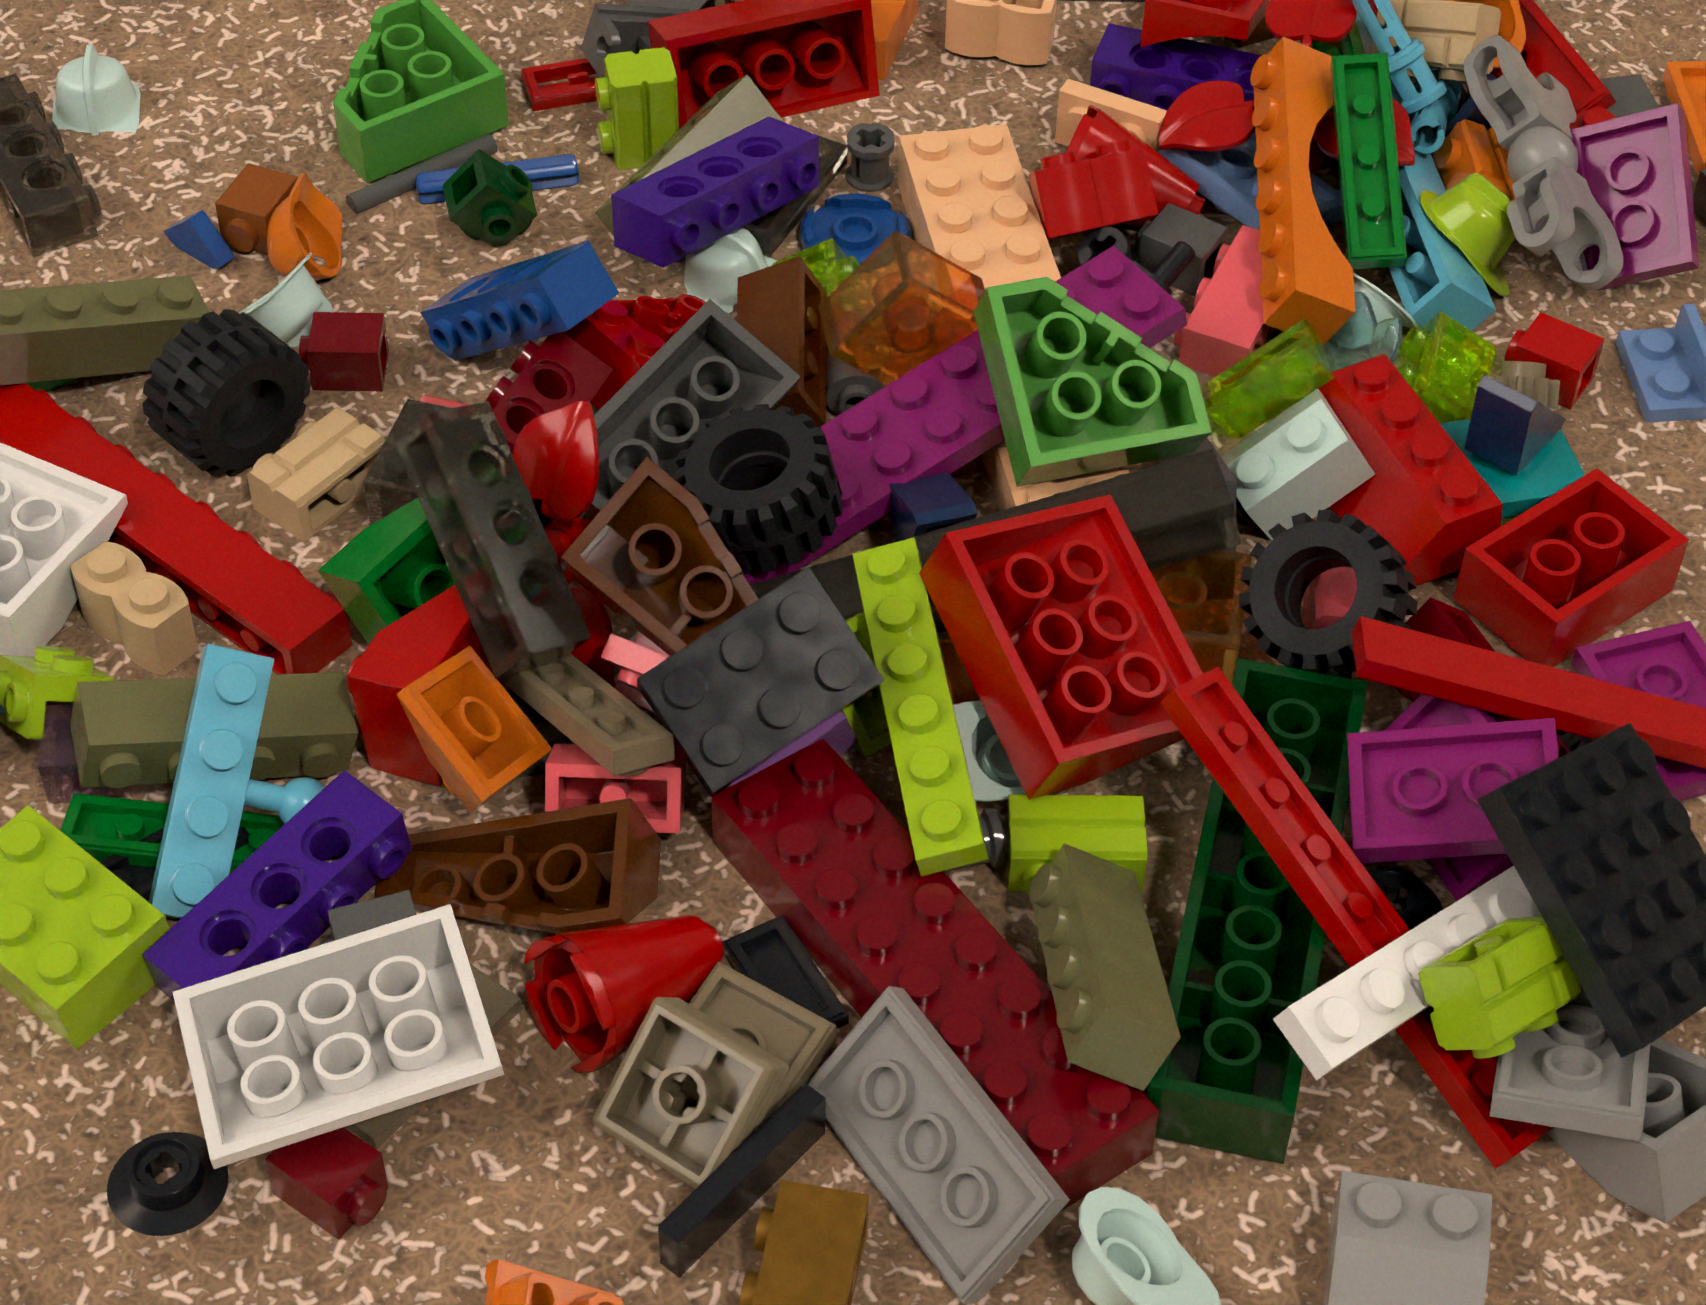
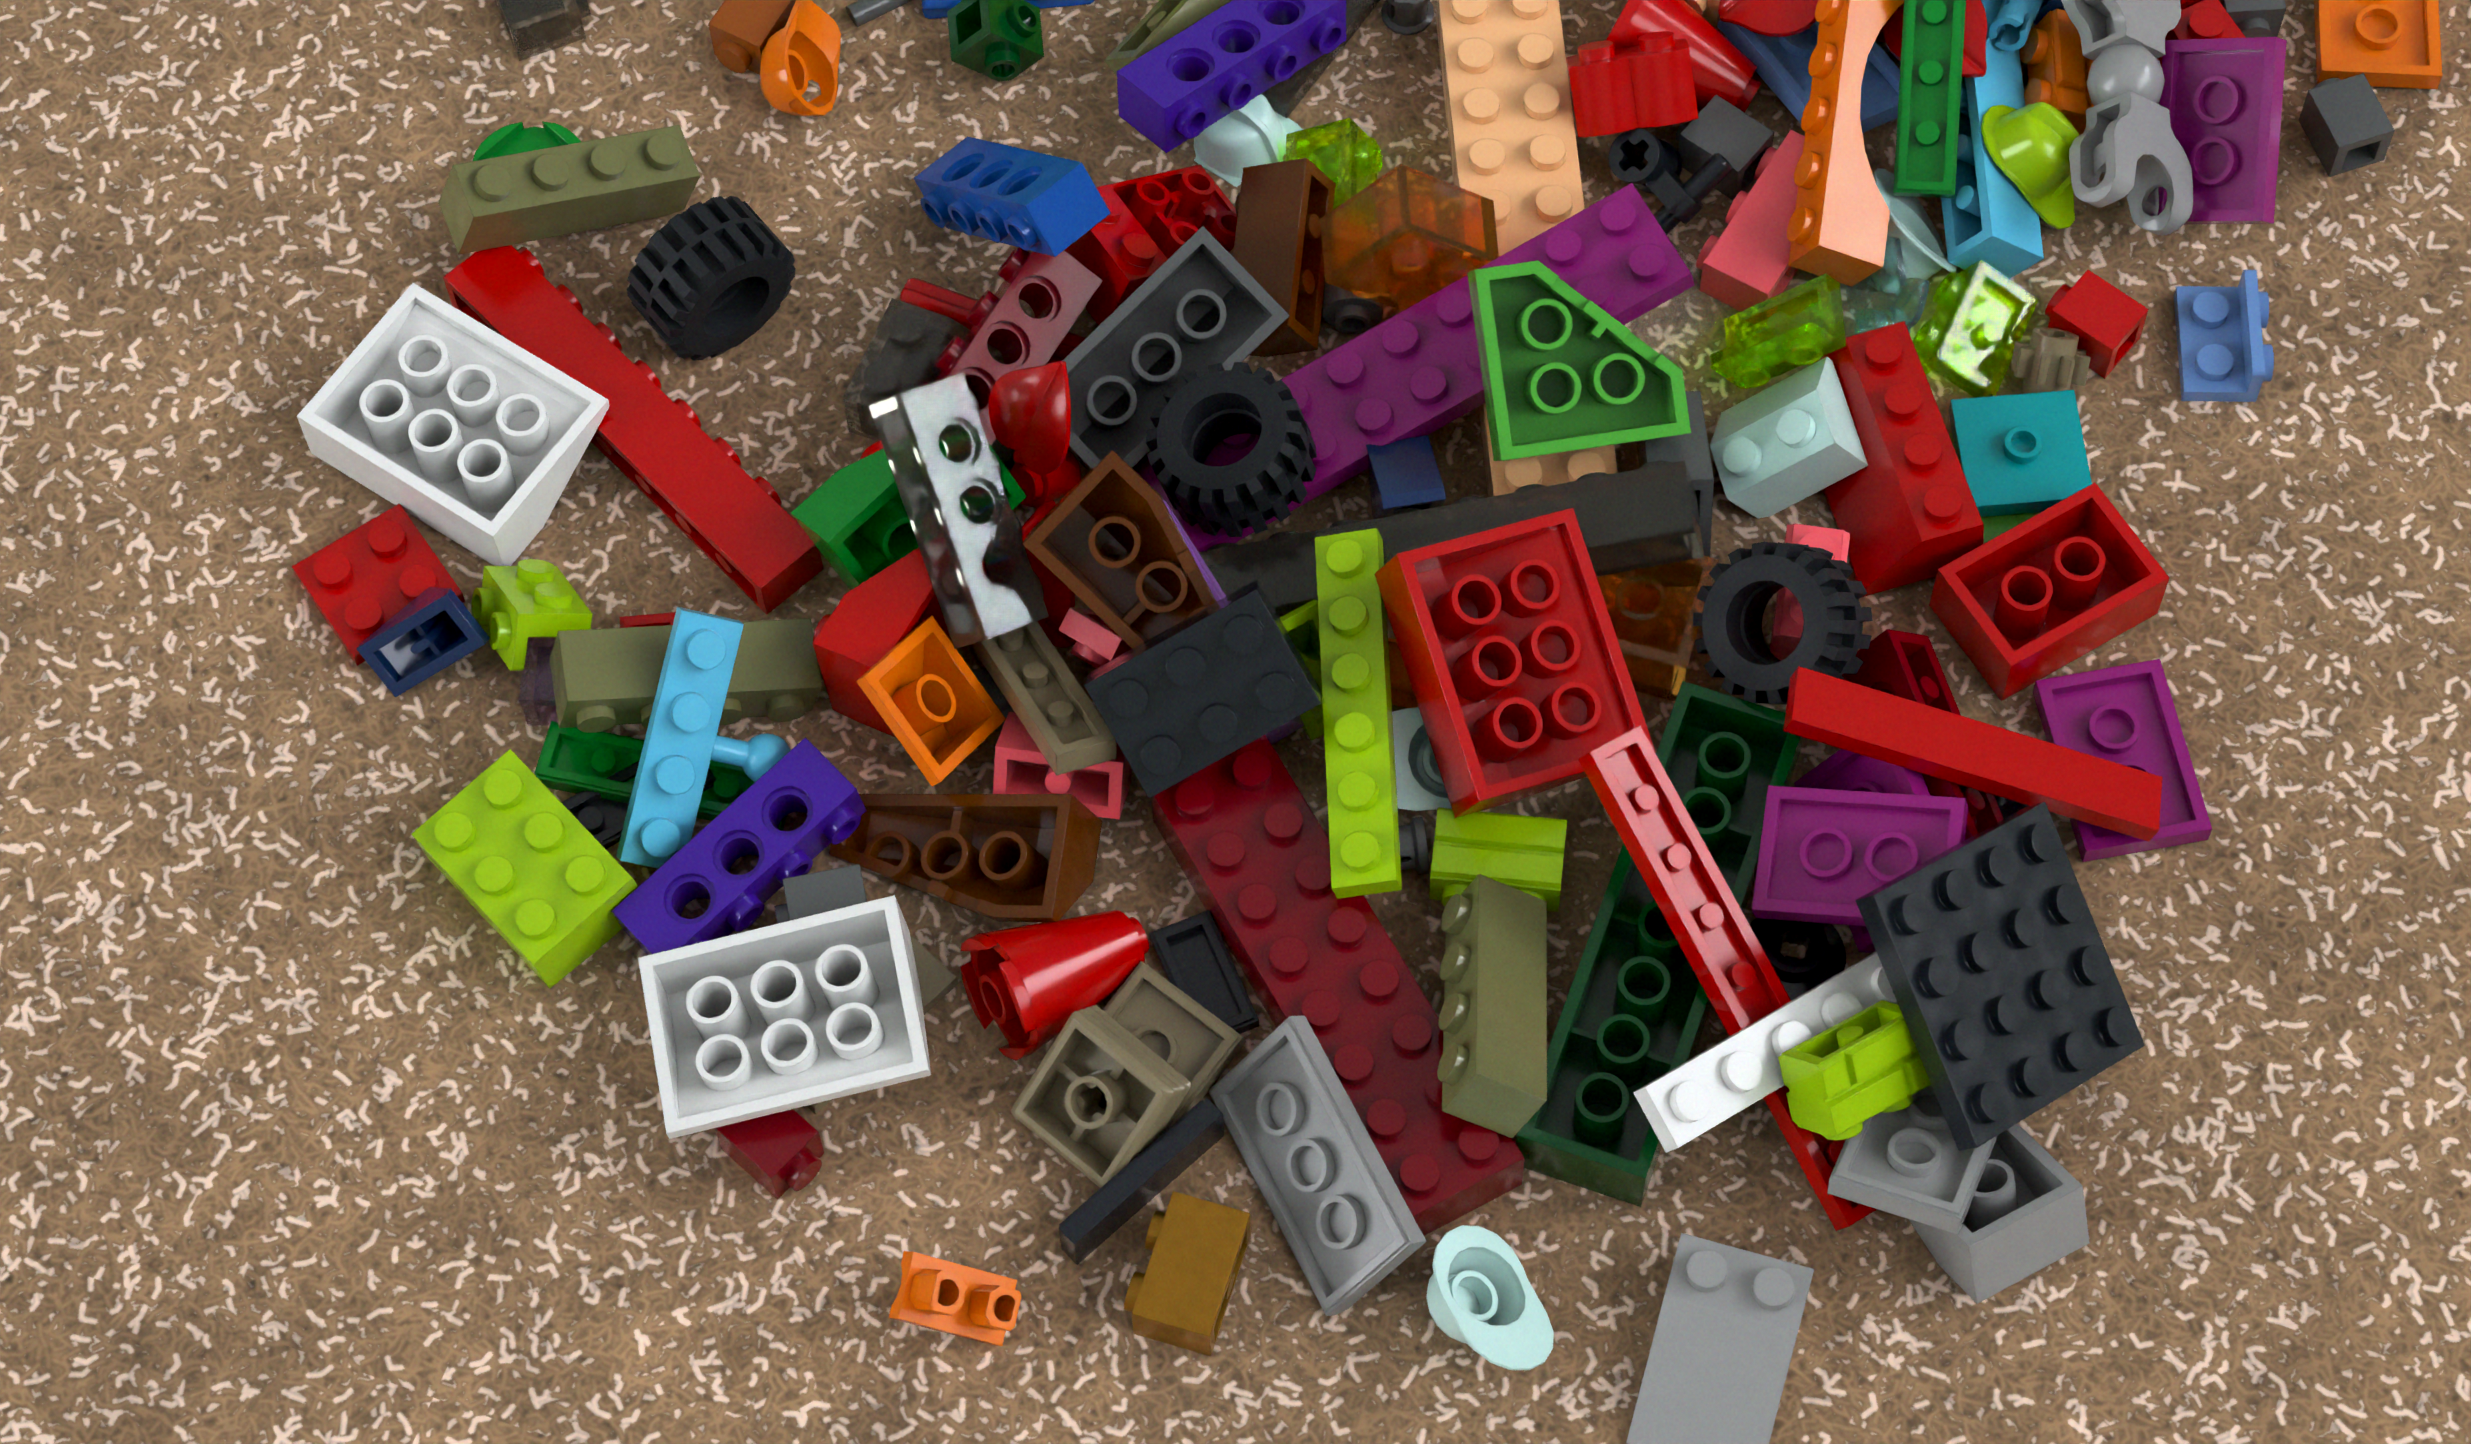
camera: 10 degrees right, 15 degrees up
(134, 607) = (613, 519): tan brick -> none
(170, 1206) = (630, 1156): black piece -> none
(200, 239) = (692, 57): blue tile -> none
(290, 305) = (770, 161): light aqua piece -> none
(315, 474) = (798, 368): tan brick -> none
(346, 351) = (835, 218): dark red brick -> none
(853, 210) = (1381, 110): blue tile -> none
(1509, 426) = (2019, 420): dark blue slope -> none

